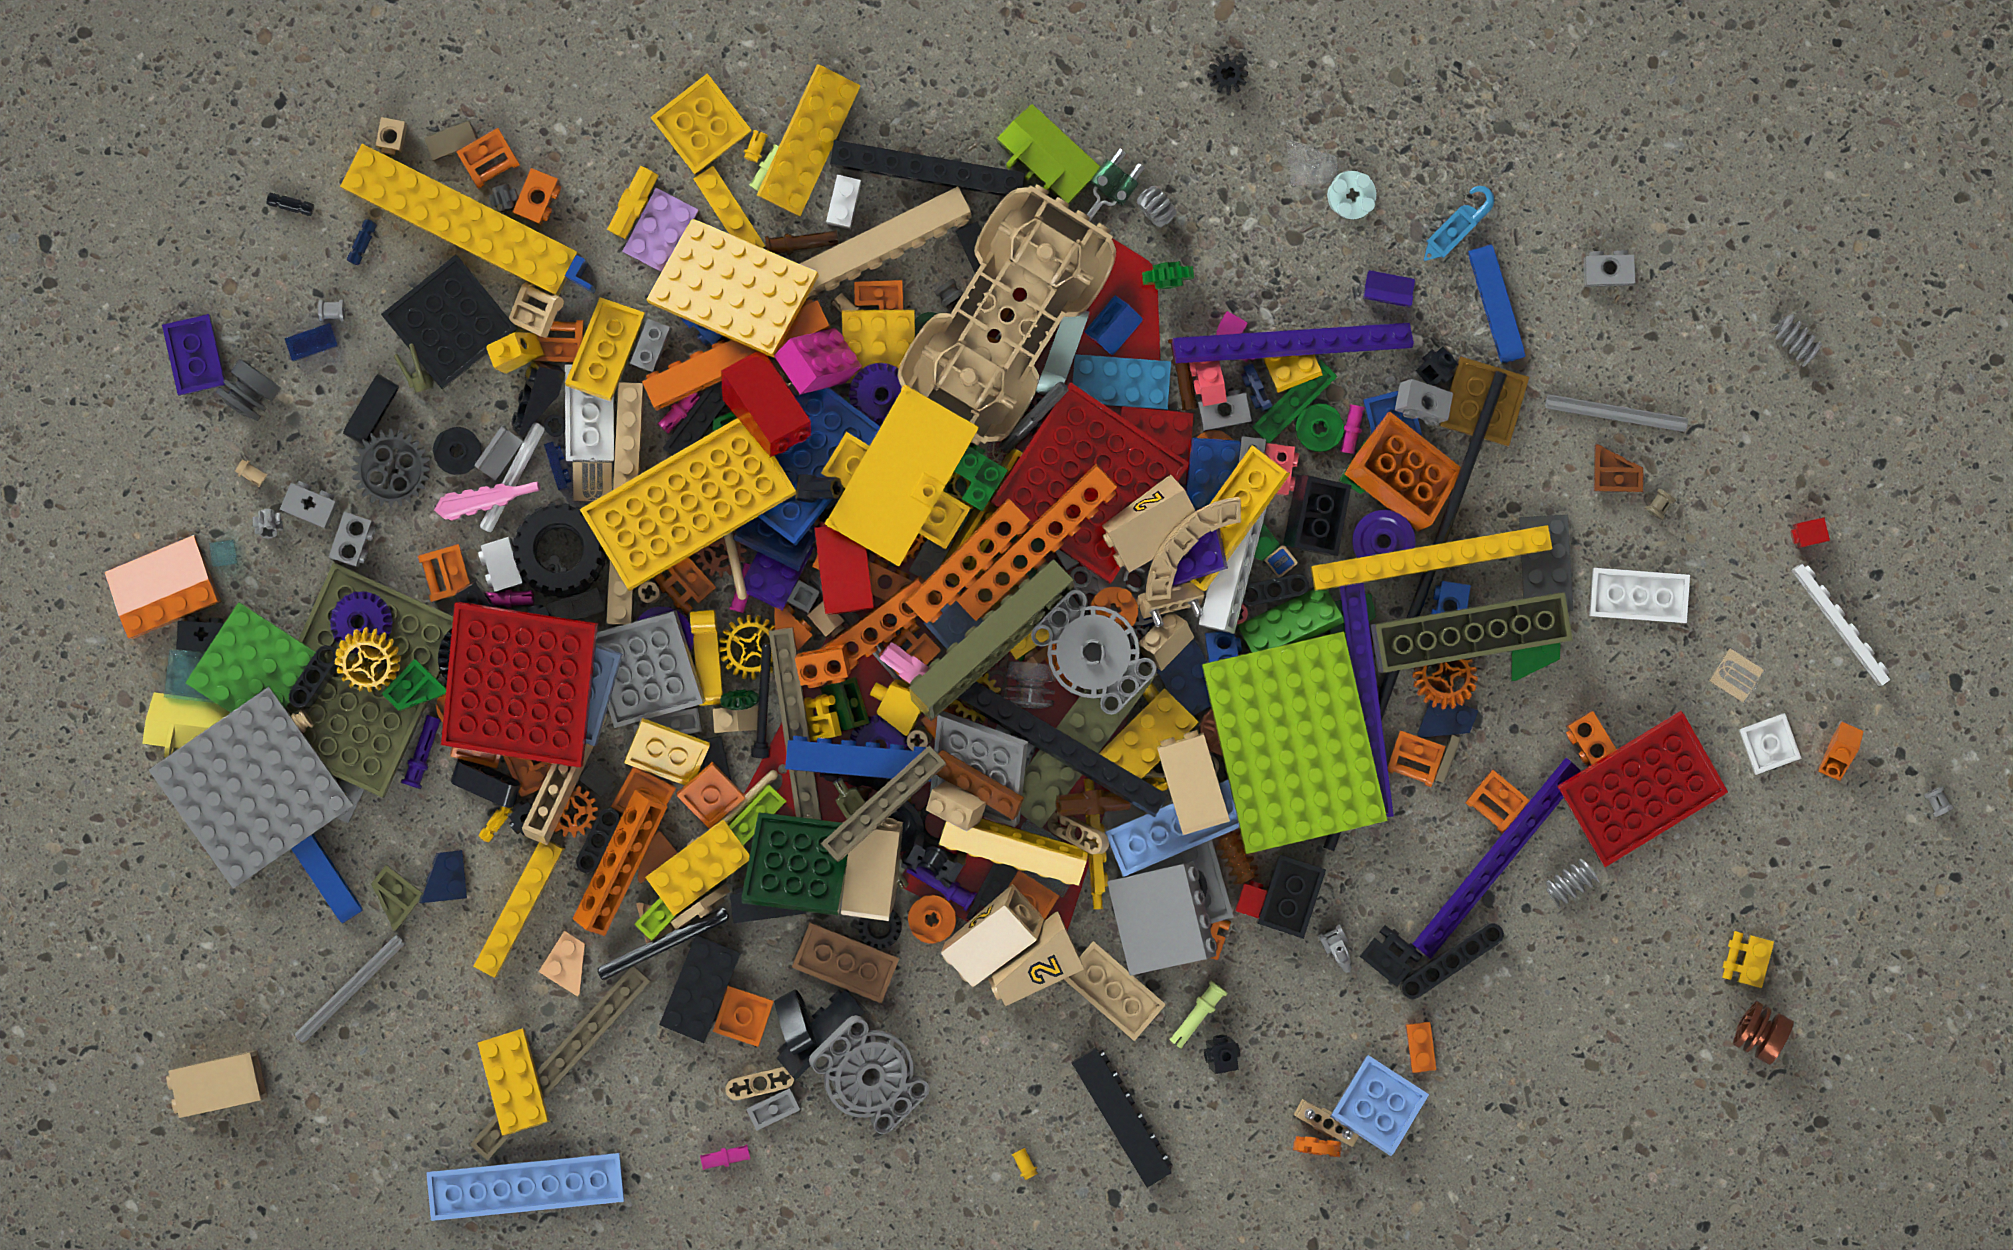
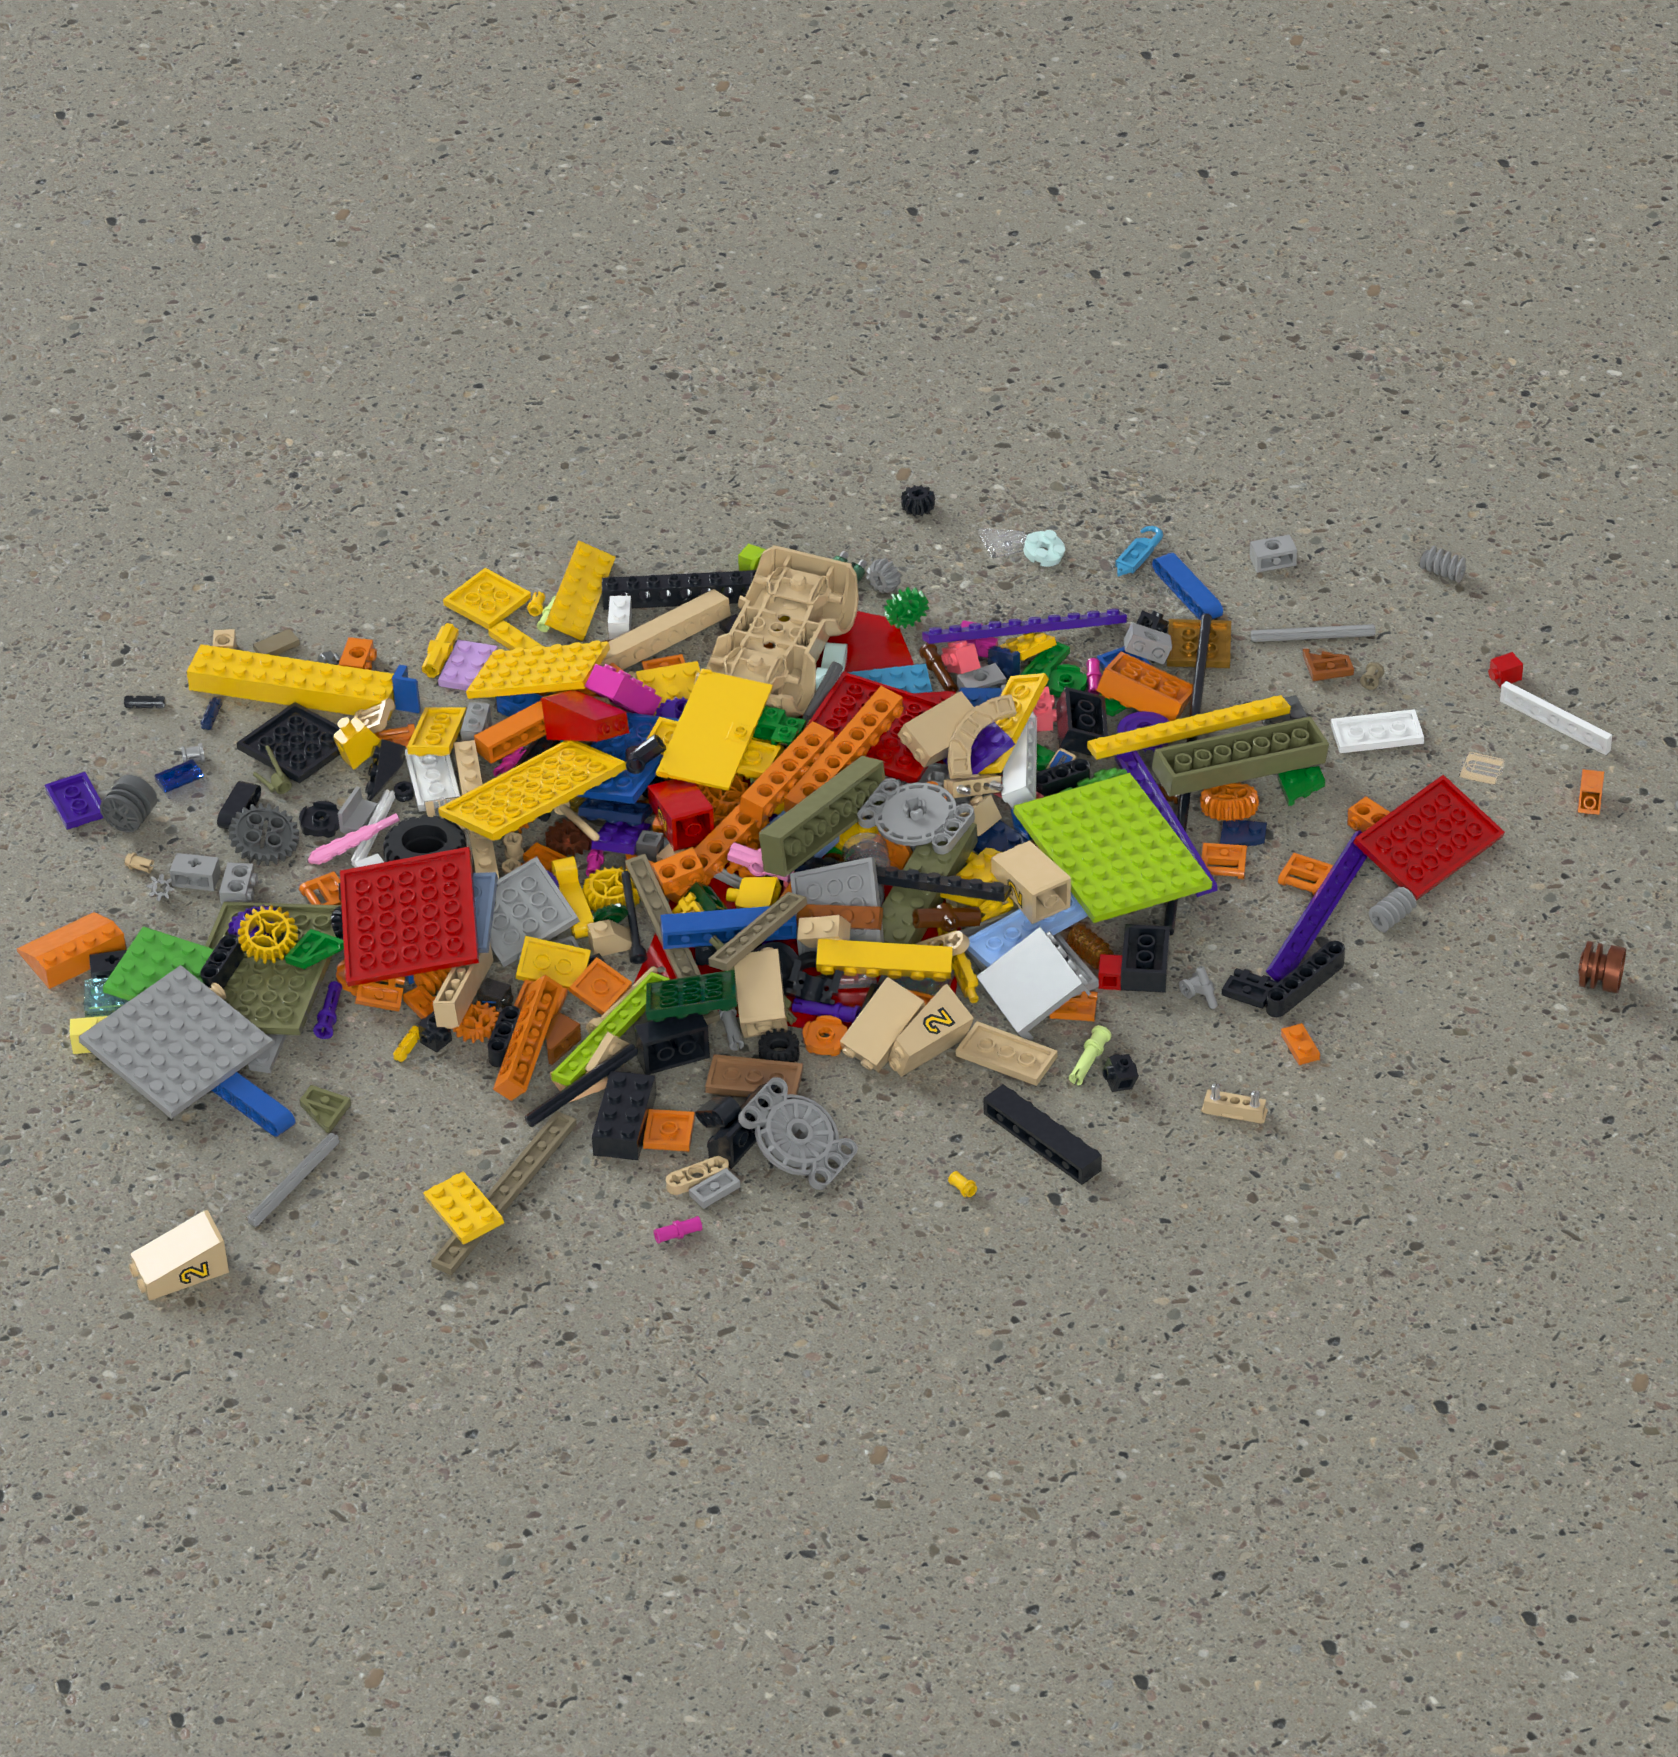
camera: 10 degrees left, 45 degrees down
(223, 553) = (123, 917): clear light blue tile -> none
(446, 878) = (369, 1087): dark blue wing -> none
(484, 150) = (308, 639): orange plate -> none
(486, 783) = (391, 1012): black beam -> none
(518, 908) = (441, 1091): yellow brick -> none
(525, 1186) = (491, 1284): light blue plate -> none
(555, 456) = (408, 806): clear blue plate -> none
(566, 963) = (493, 1127): light nougat wing -> none
(698, 867) = (612, 1015): yellow plate -> none
(1114, 325) = (871, 651): blue panel -> none
(1317, 1147) = (1227, 1104): orange plate -> none
(1379, 1105) = (1277, 1079): light blue plate -> none
(1389, 289) = (1095, 597): dark purple panel -> none
(1447, 758) = (1251, 854): dark tan tile -> none
(1754, 962) = (1575, 934): yellow plate -> none
(1770, 743) = (1528, 802): white tile -> none

